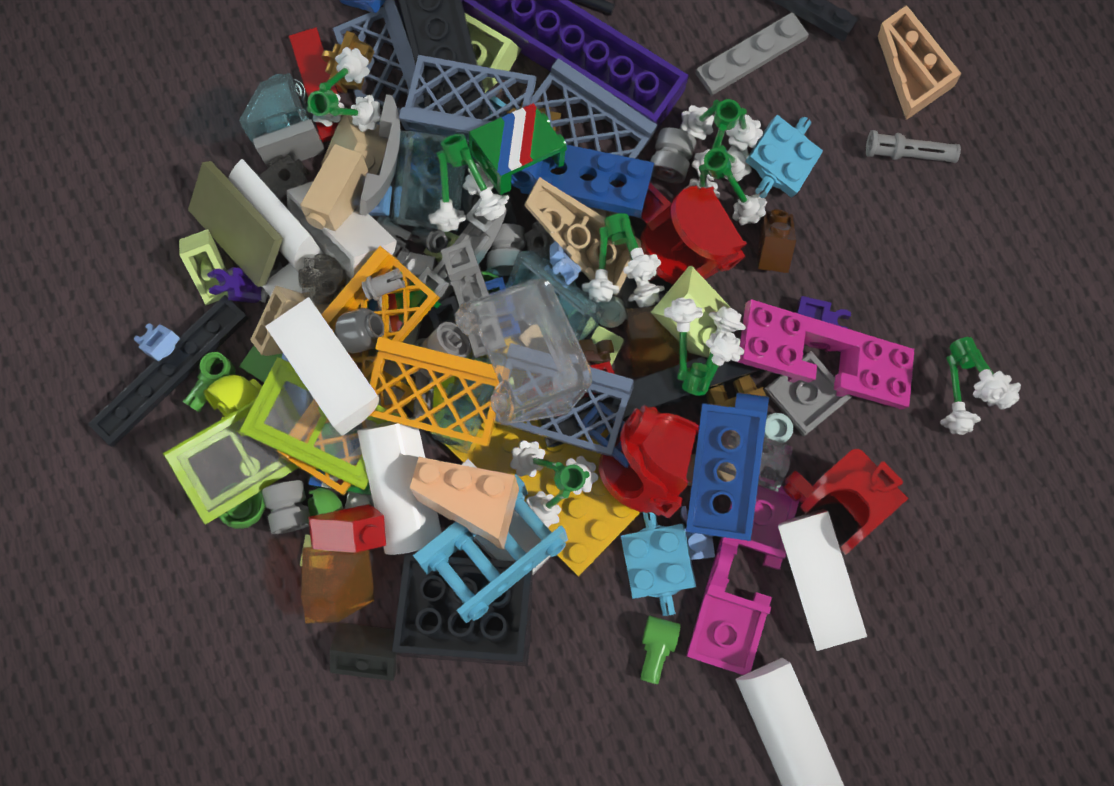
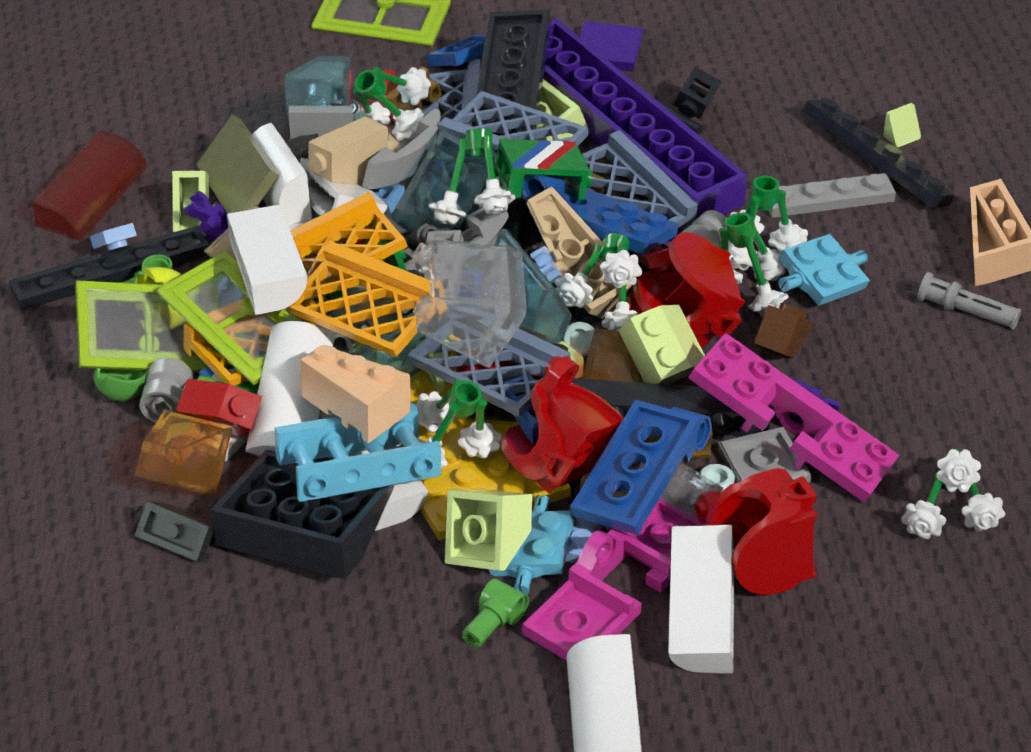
camera: 20 degrees right, 35 degrees down
(105, 276) = (89, 186): none -> clear red brick
(321, 279) = (304, 201): clear smoke brick -> none
(359, 330) = (312, 240): dark grey head -> none
(382, 284) = (356, 218): light grey pin -> none
(623, 571) = (486, 527): none -> yellowish green slope
(722, 343) = (673, 335): white plant -> none

